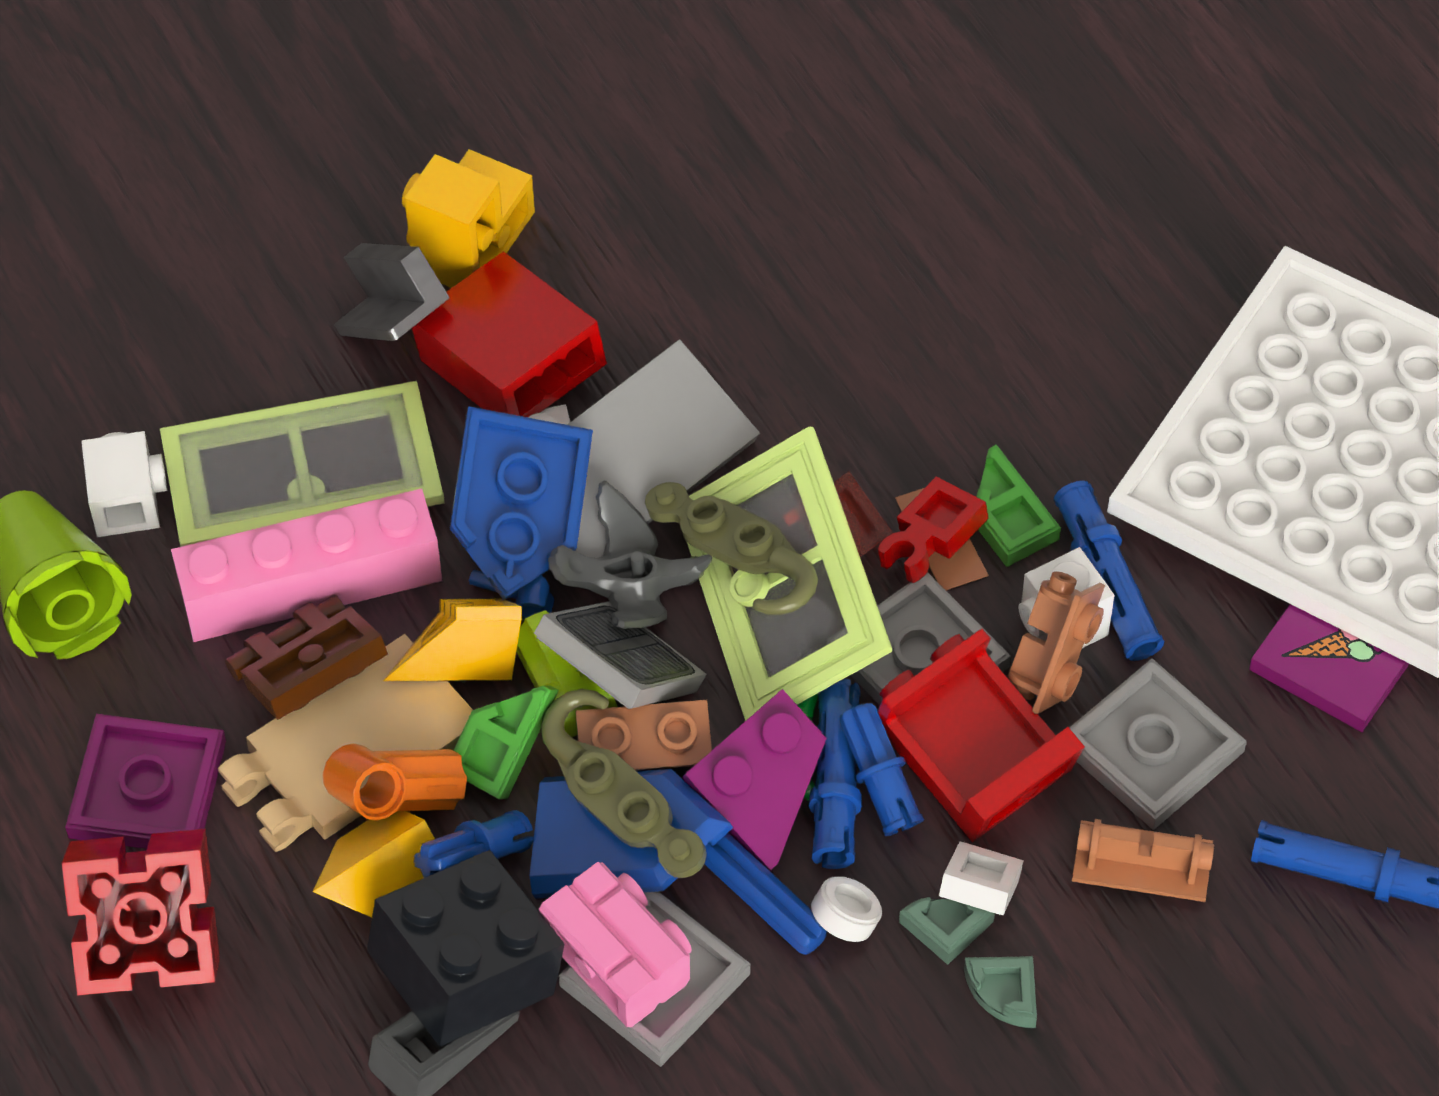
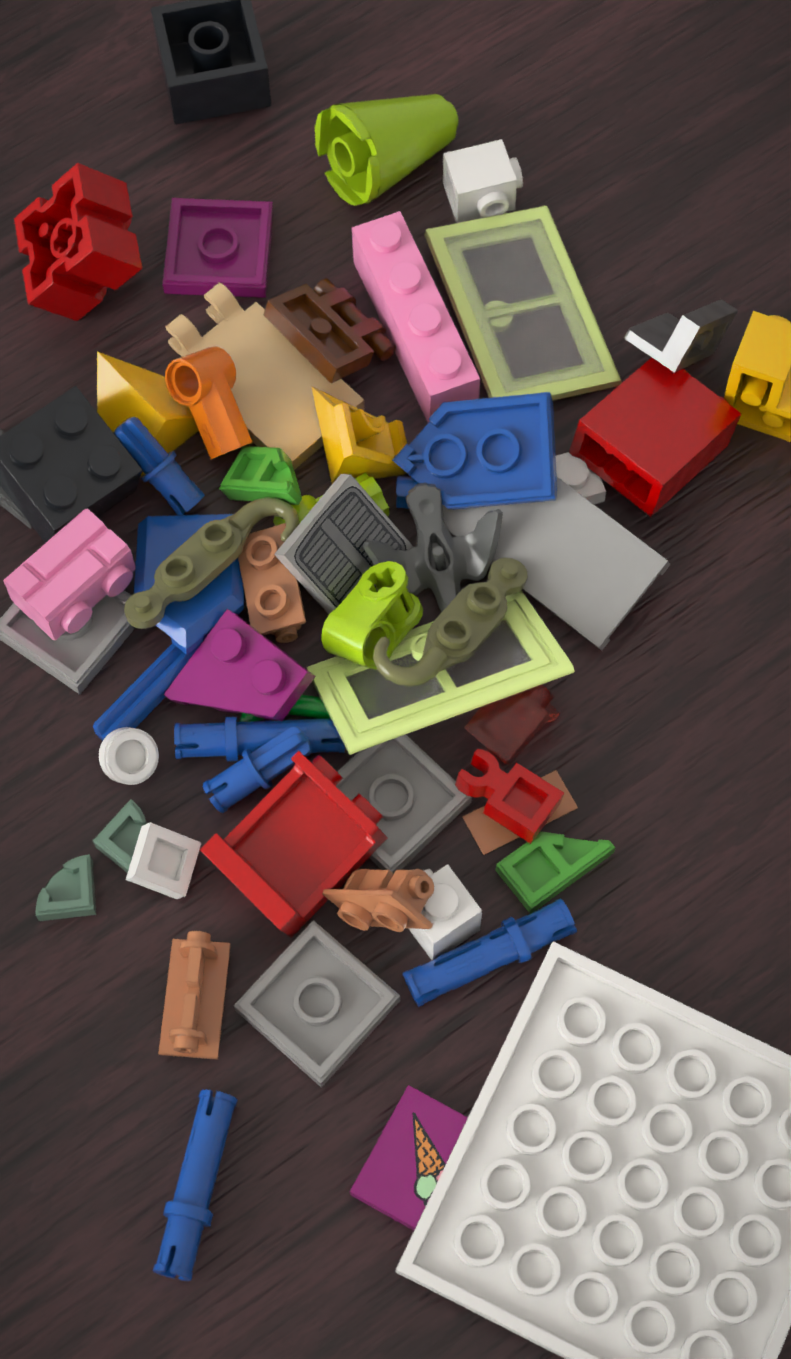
camera: 85 degrees right, 10 degrees up
(709, 638) = (368, 615): none -> lime piece

